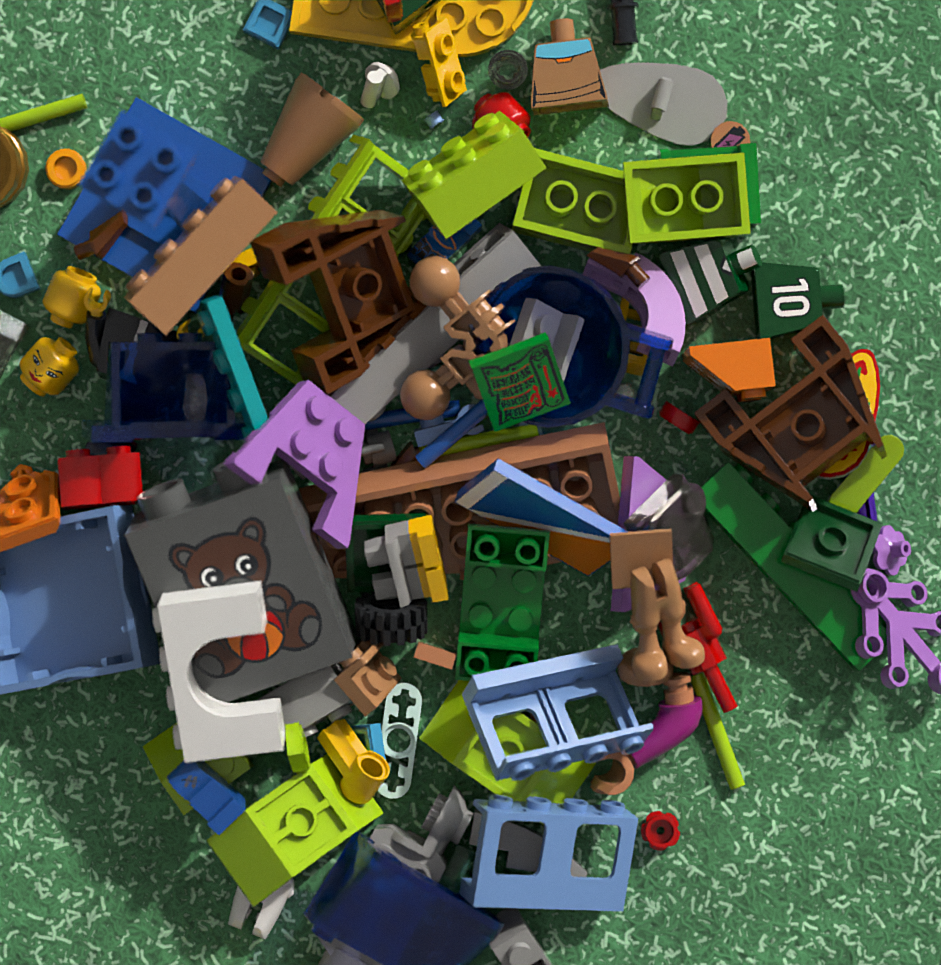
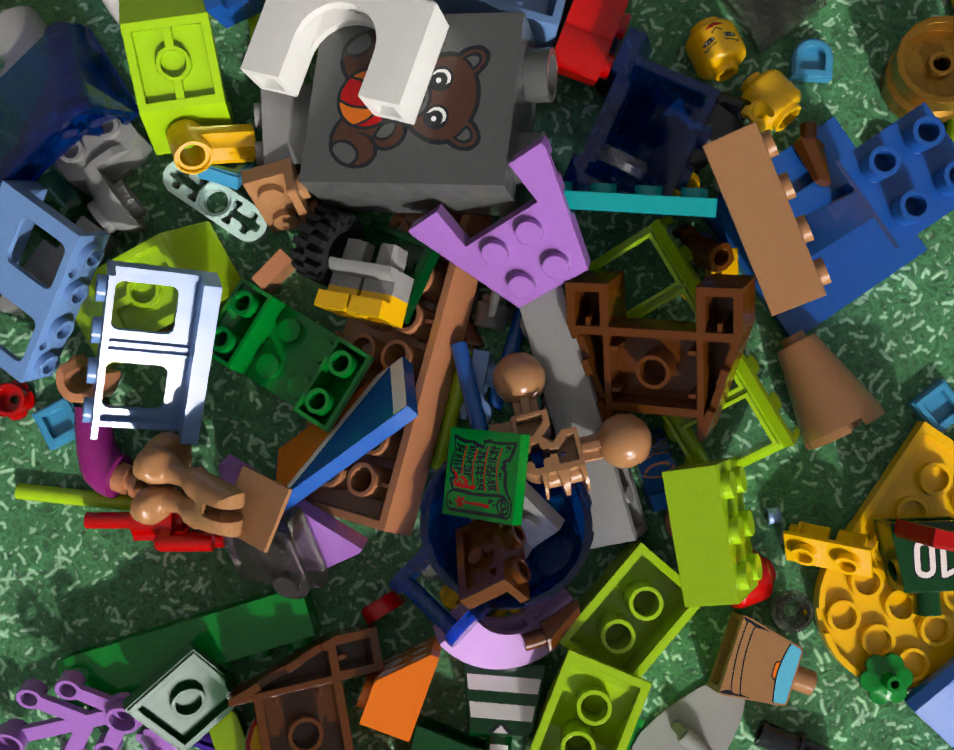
camera: 120 degrees right, 0 degrees up
(297, 747) = (243, 92): lime tile -> none
(380, 82) = (832, 481): white plate -> none
(588, 342) = (491, 562): none -> reddish brown bracket
(659, 780) = (56, 423): none -> dark azure tile

